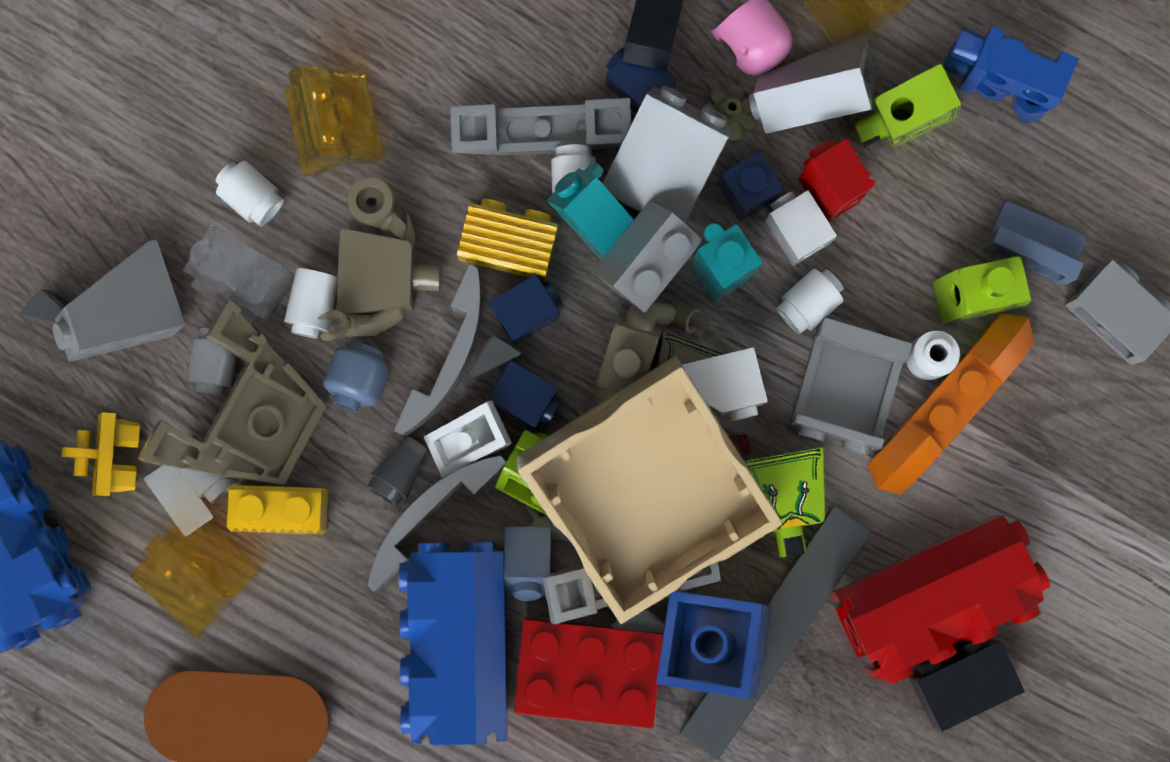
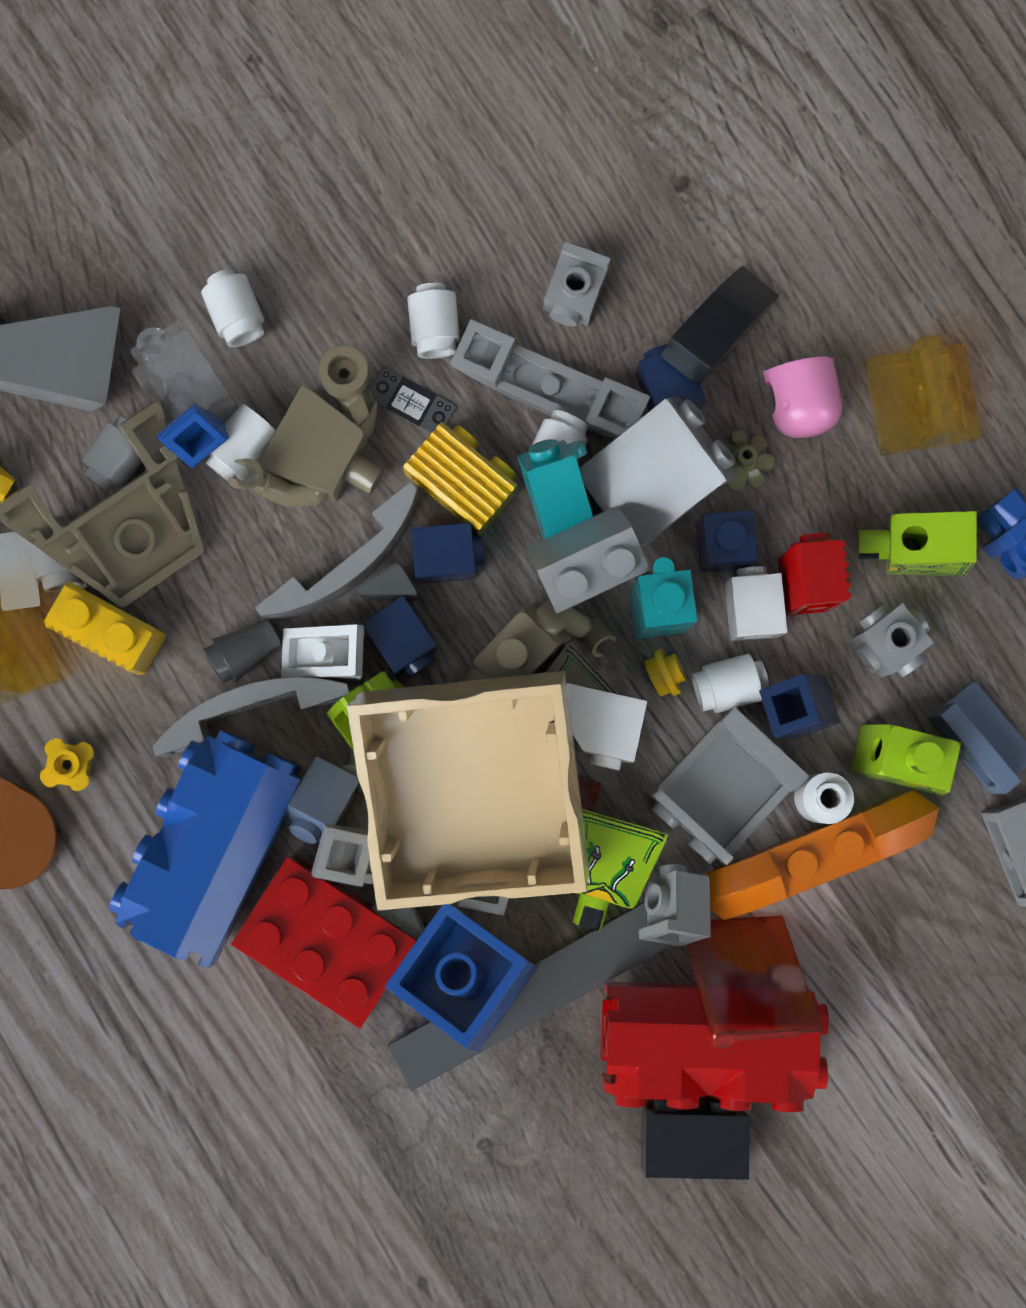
camera: 25 degrees right, 0 degrees up
(273, 313) = (194, 434): none -> blue slope
(314, 640) = (77, 775): none -> yellow plate
(331, 119) = (350, 275): clear yellow bracket -> none
(356, 376) = (247, 538): sand blue head -> none
(419, 122) = (433, 321): none -> white brick
(433, 197) = (410, 400): none -> sticker
(521, 18) = (582, 267): none -> light grey brick
(754, 317) = (665, 673): none -> yellow plate
(816, 87) = (840, 476): slope -> none
(858, 502) = (677, 907): none -> light grey brick
(876, 291) = (799, 706): none -> dark blue brick
(913, 211) = (876, 646): none -> light grey brick
(945, 530) = (752, 981): none -> clear red piece

